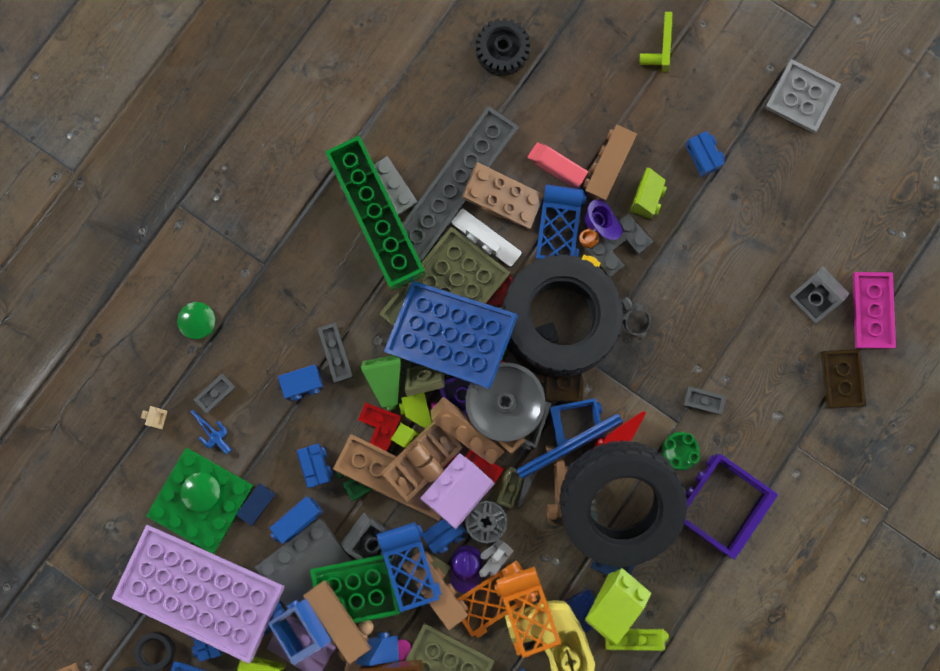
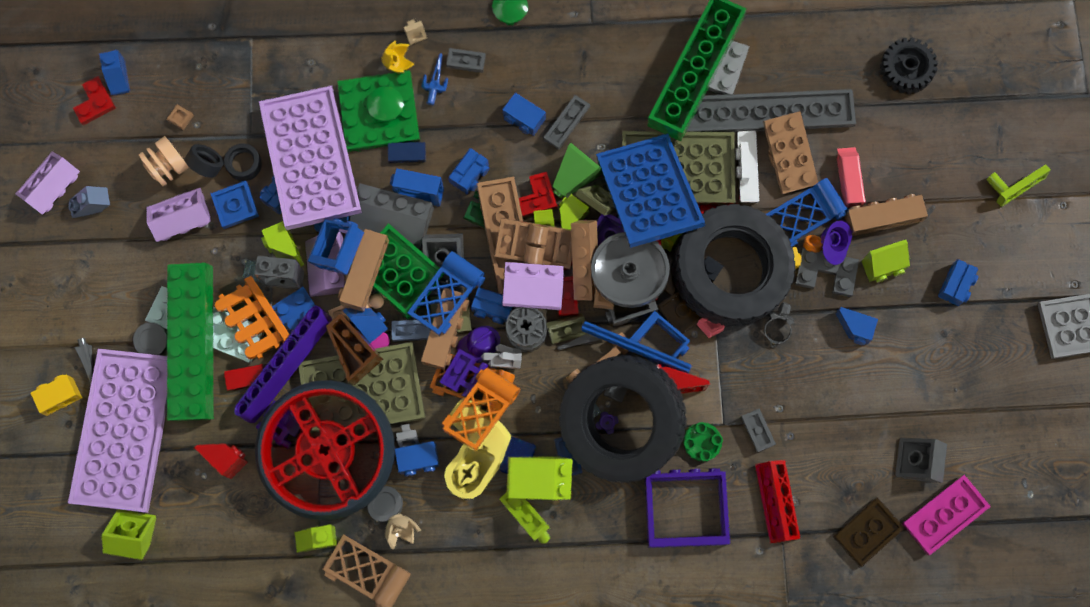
camera: 55 degrees right, 5 degrees down
(166, 453) = (394, 58): none -> yellow piece
(411, 619) = (409, 330): none -> sand blue plate
(478, 604) = (459, 370): none -> dark purple plate
(595, 373) = (709, 328): none -> coral plate
(609, 509) = (606, 417): none -> dark purple plate
(680, 258) = (857, 325): none -> blue slope
(769, 432) = (774, 501): none -> red fence

